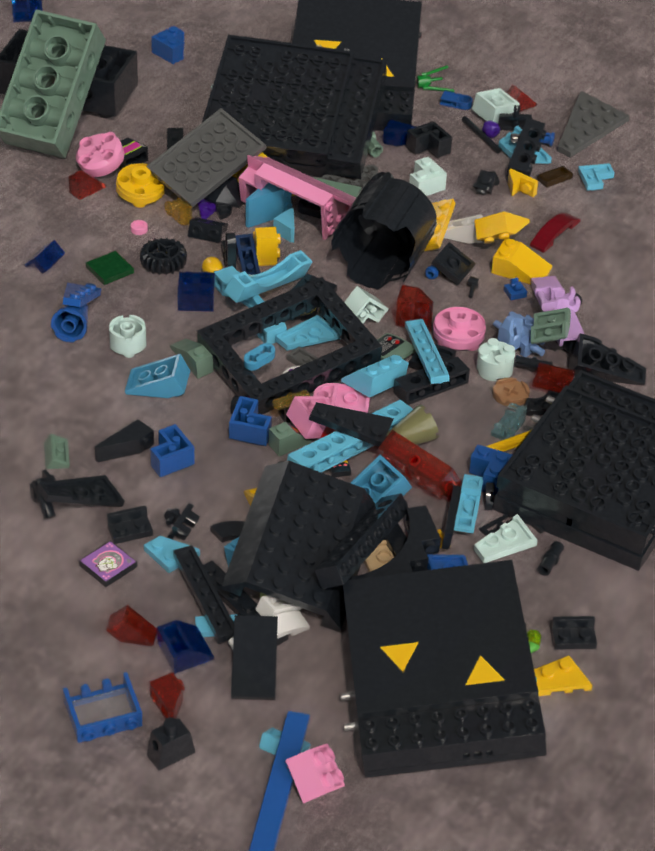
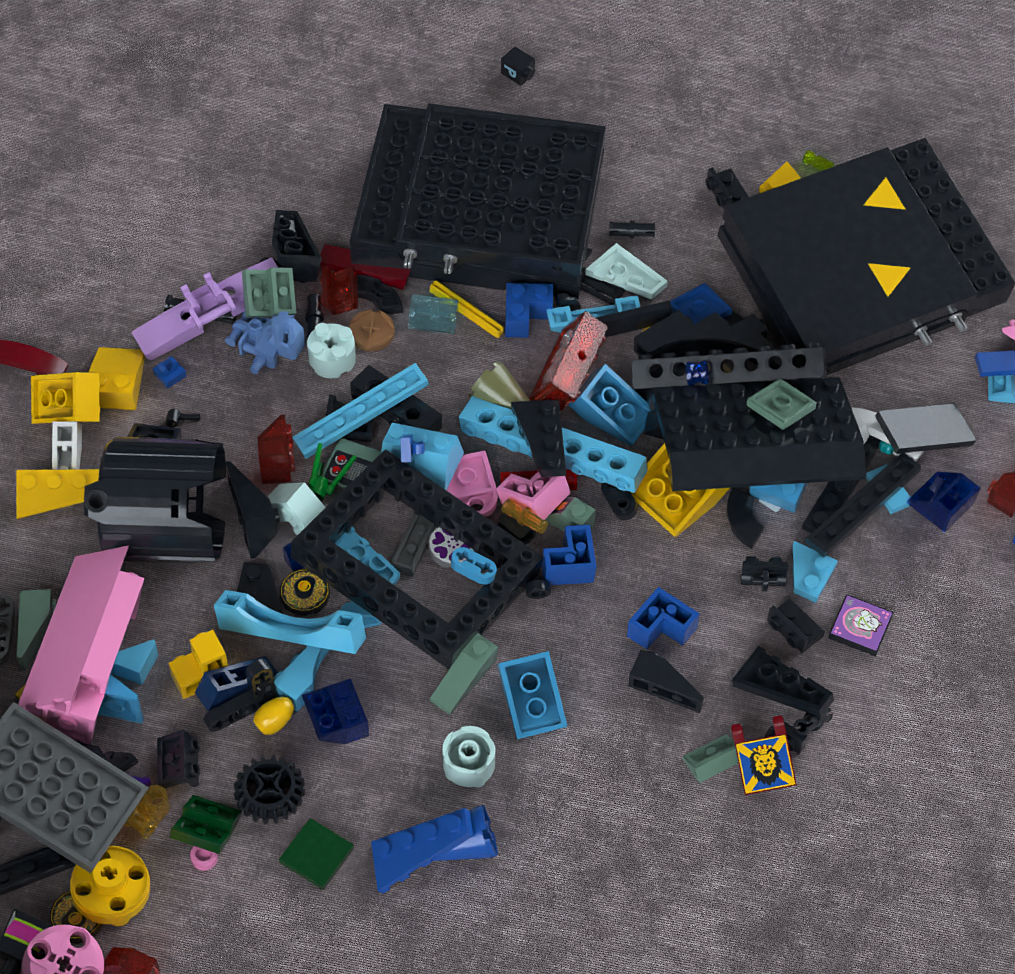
camera: 110 degrees left, 15 degrees up
(35, 466) = (764, 761): none -> flag
(46, 256) = (331, 949): clear blue panel -> none
(131, 627) = (946, 560): clear red slope -> none
(157, 226) = (205, 824): none -> dark green slope
(303, 540) = (781, 403): none -> sand green plate
(357, 511) = (697, 372): none -> clear blue wheel
(372, 282) = (253, 511): none -> black wedge
(374, 352) = (409, 448): none -> tile
(378, 327) = (319, 484): none -> green plant
(459, 328) = (286, 394): bright pink piece -> none
(580, 711) = (818, 161): none -> clear neon green axle

